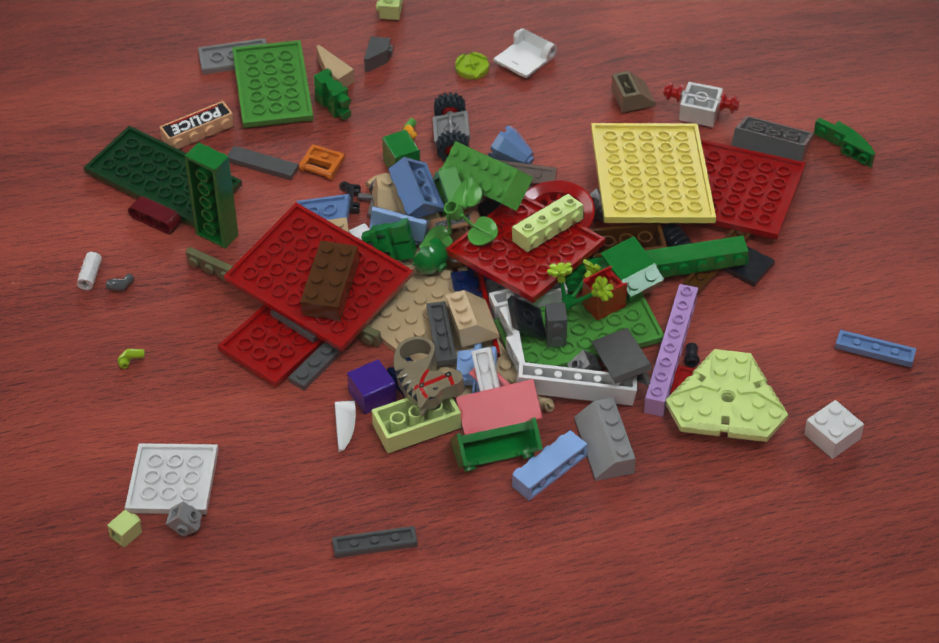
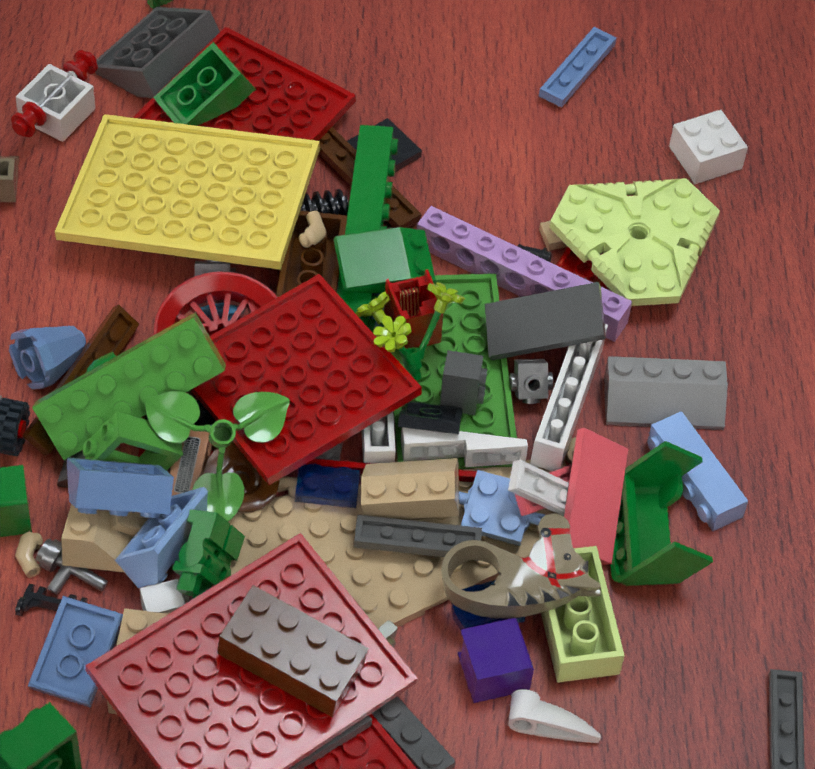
camera: 80 degrees left, 5 degrees up
(431, 258) = (261, 508): green cylinder -> none
(547, 222) = (273, 329): yellowish green brick -> none
(643, 233) = (315, 231): none -> tan arm
(741, 162) = (204, 89): none -> green slope

